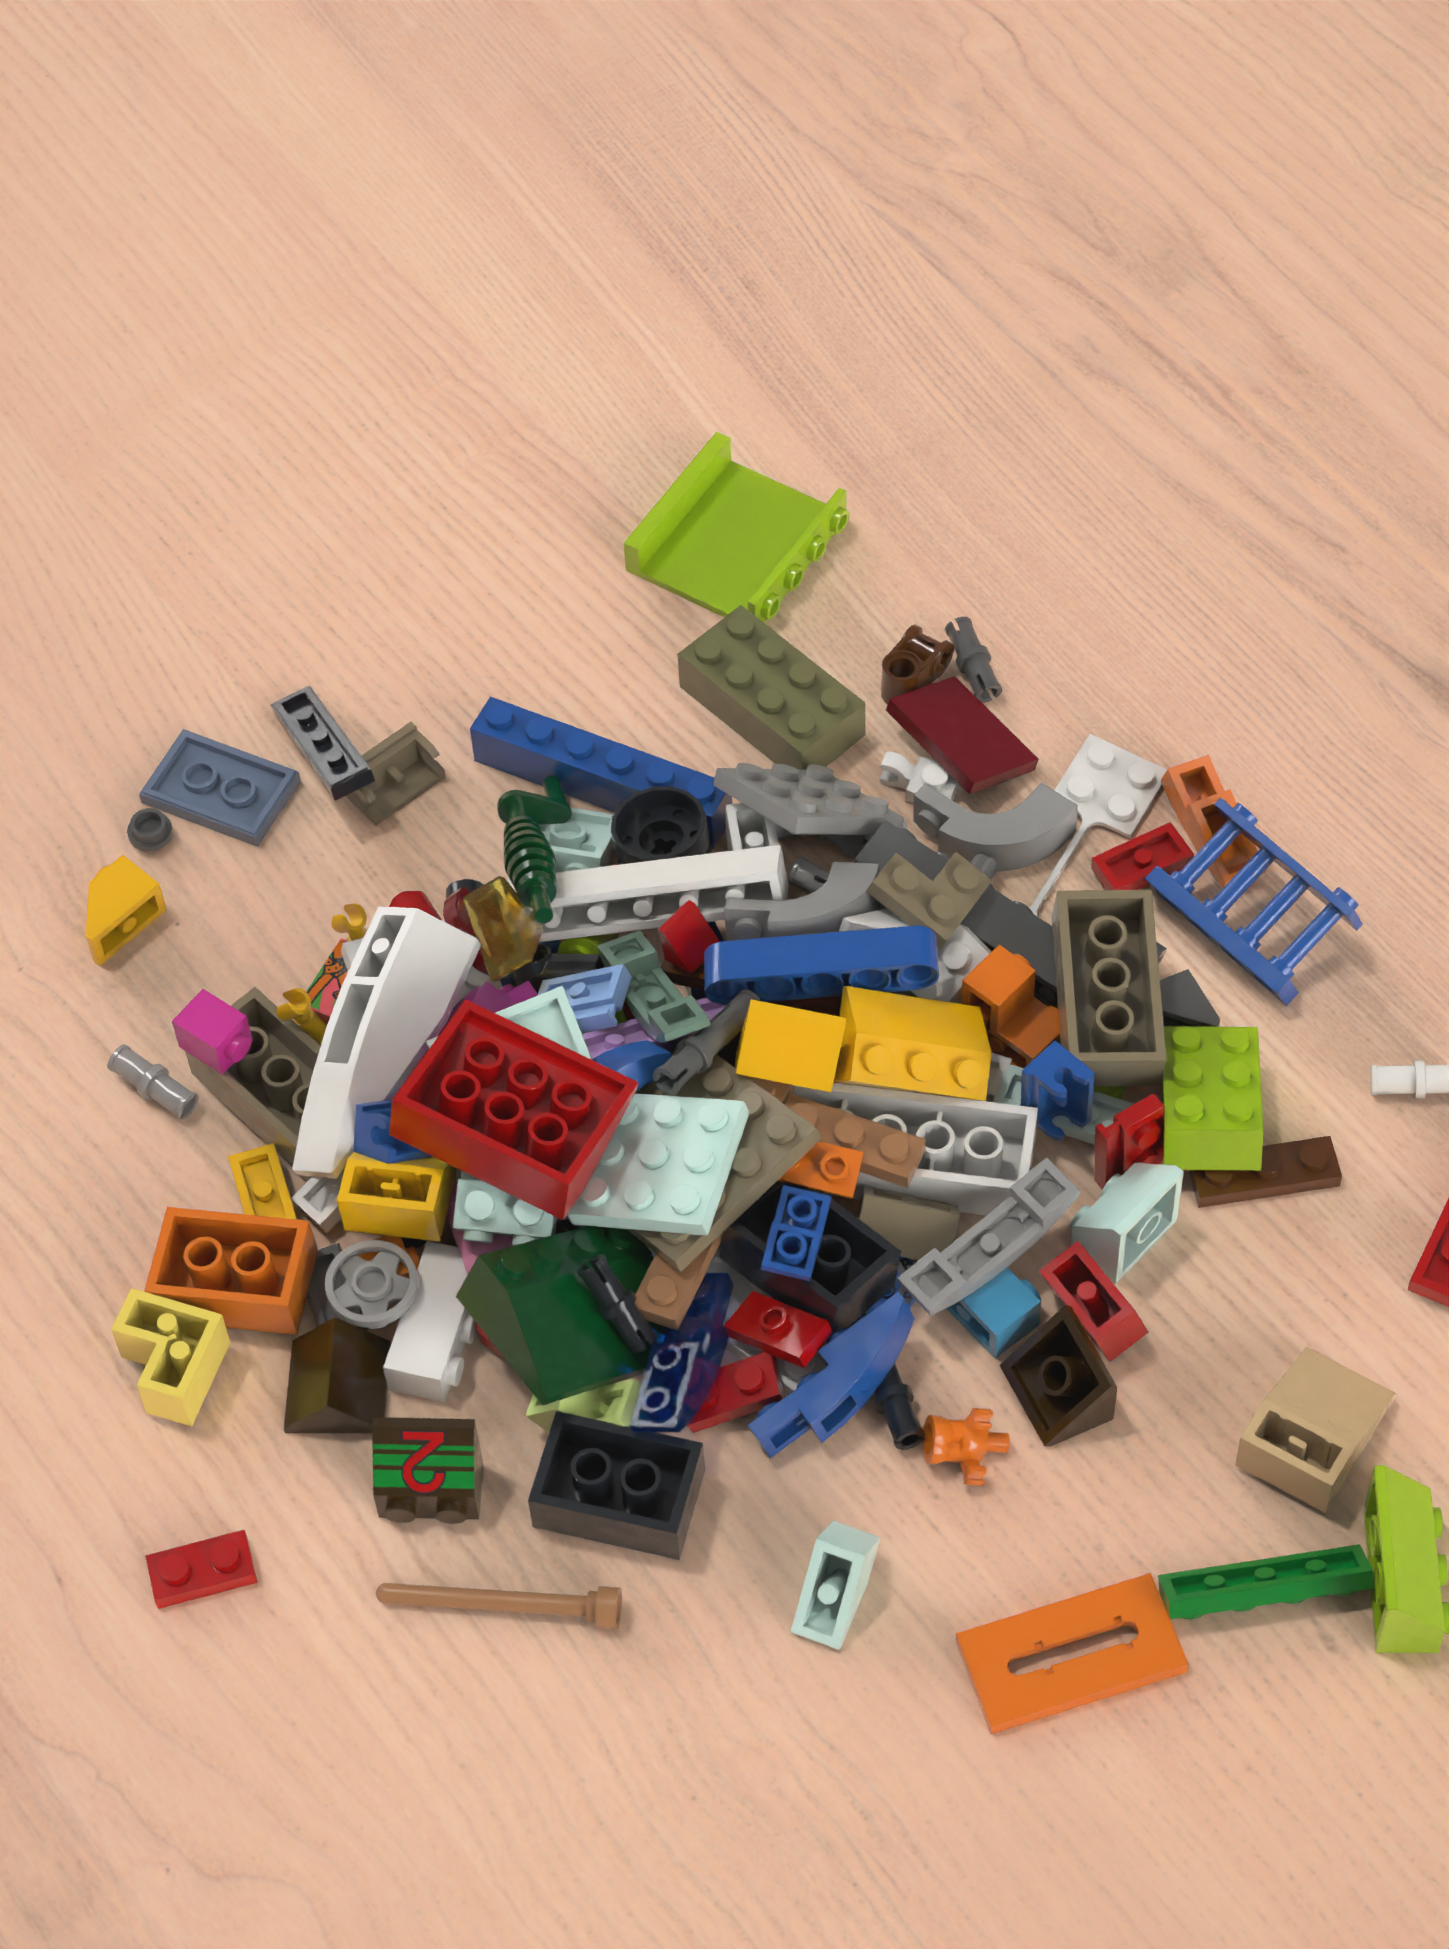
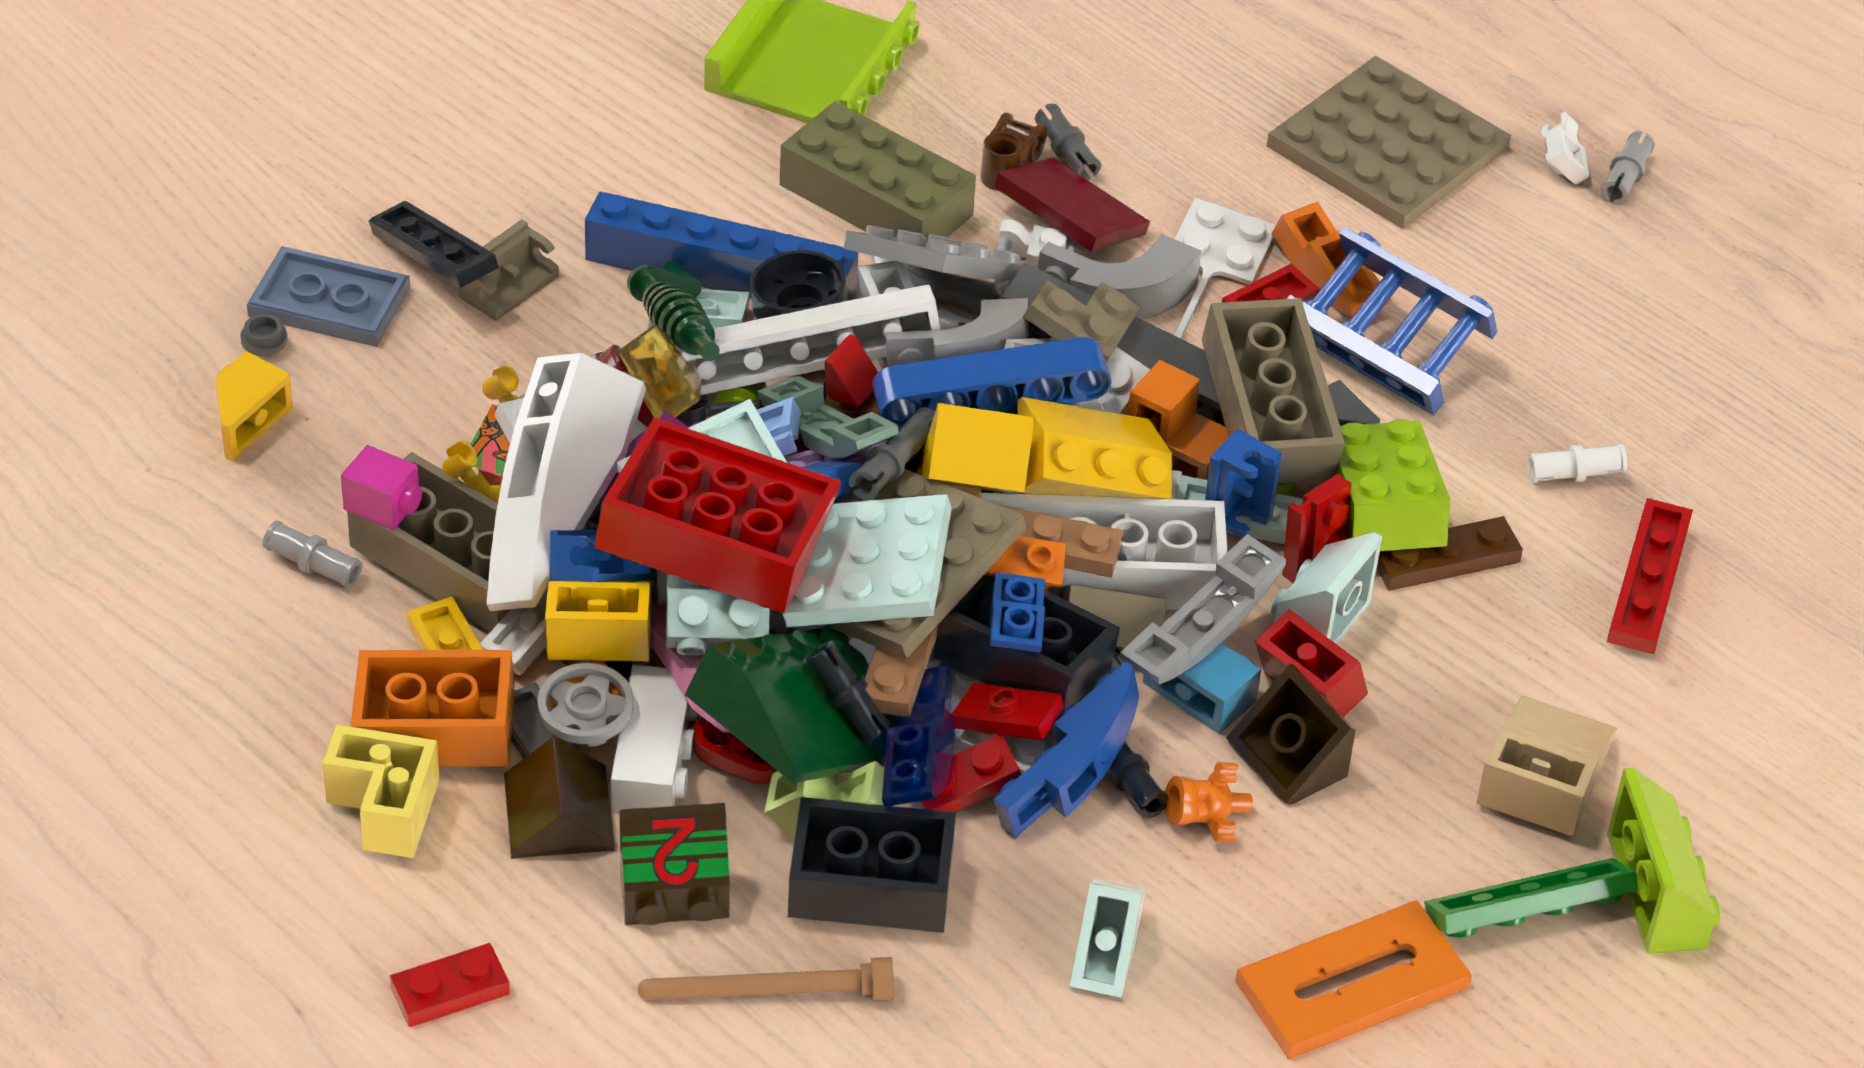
camera: 15 degrees left, 10 degrees down
(1304, 677) = (1388, 141): none -> dark tan plate

